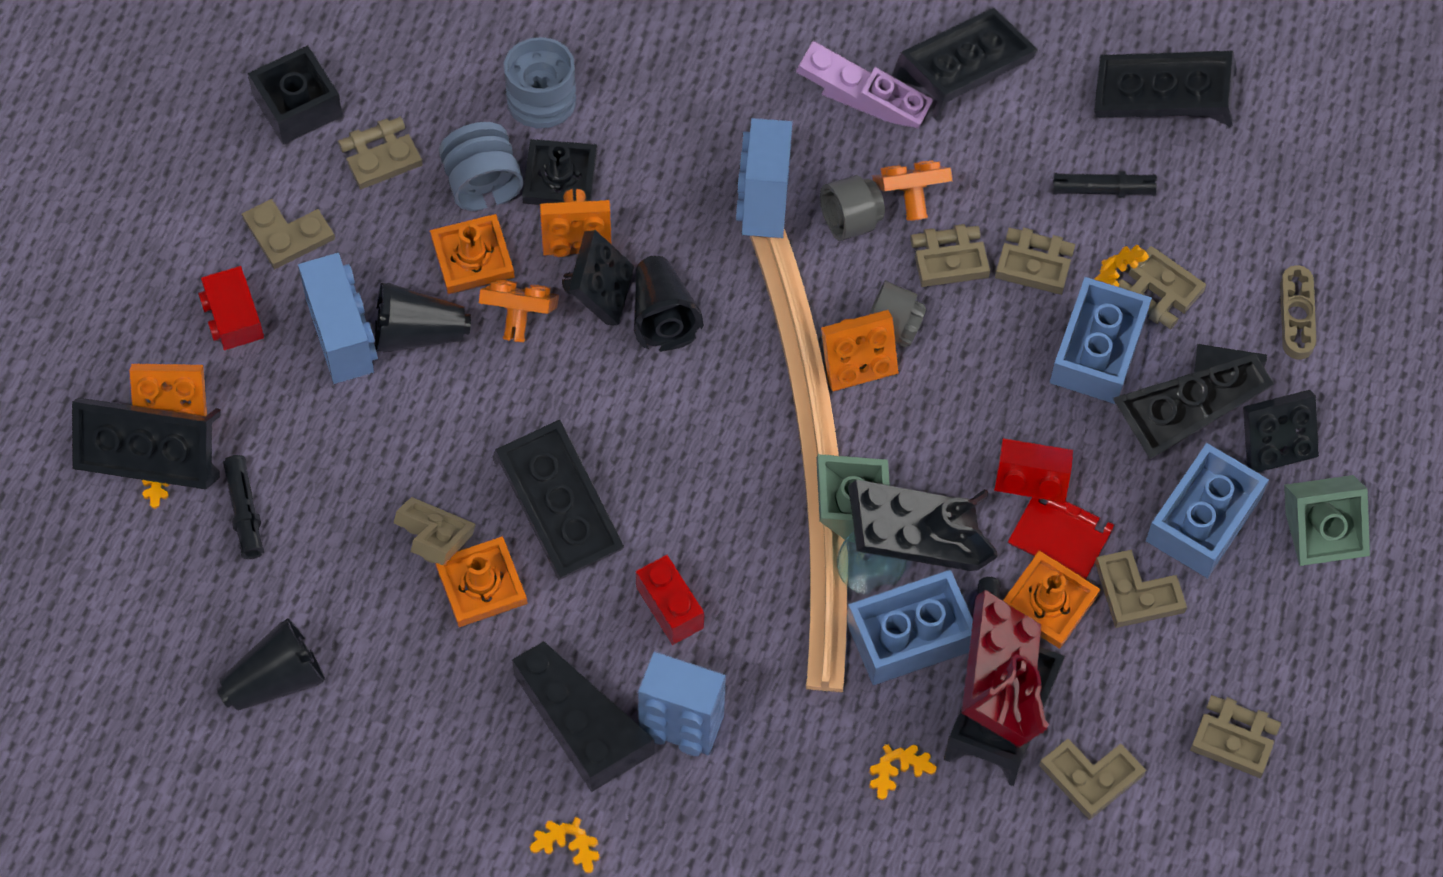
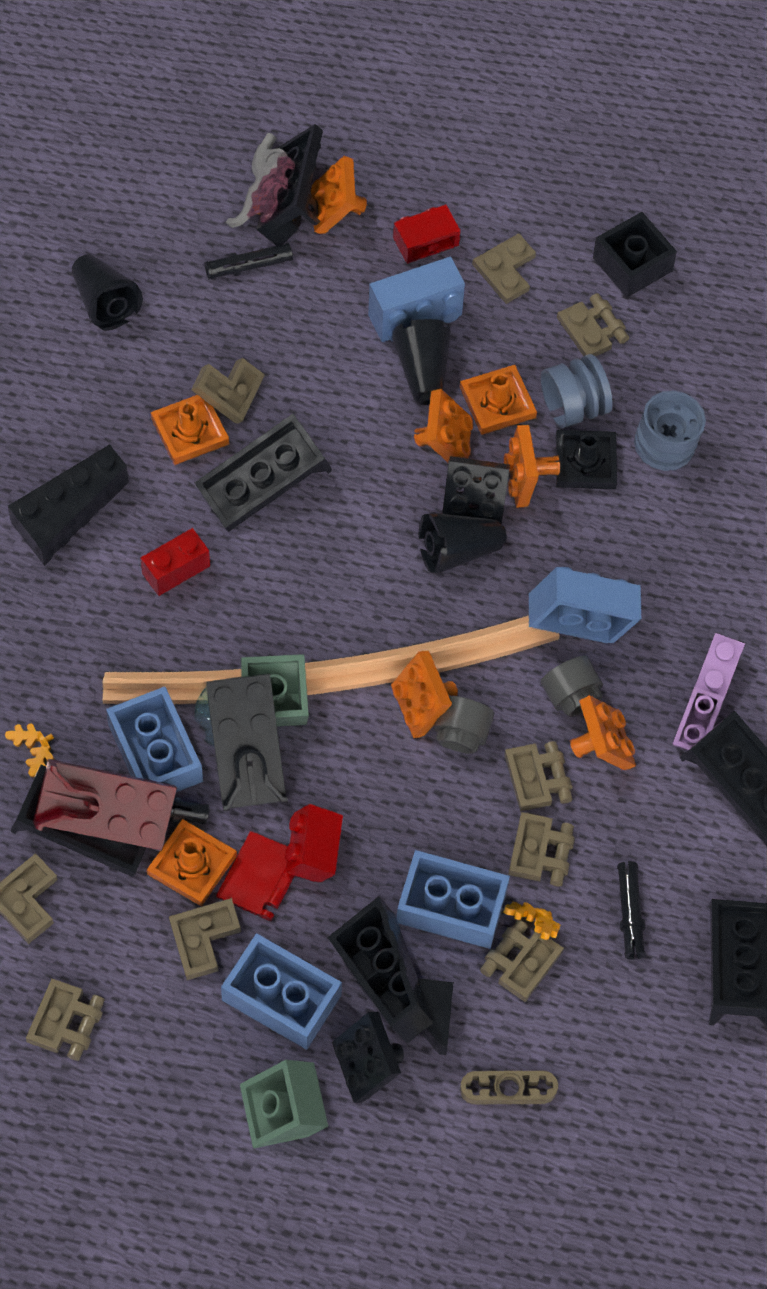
camera: 85 degrees right, 0 degrees up
(135, 468) = (269, 170): none -> piece
(681, 704) = (66, 561): medium blue brick -> none

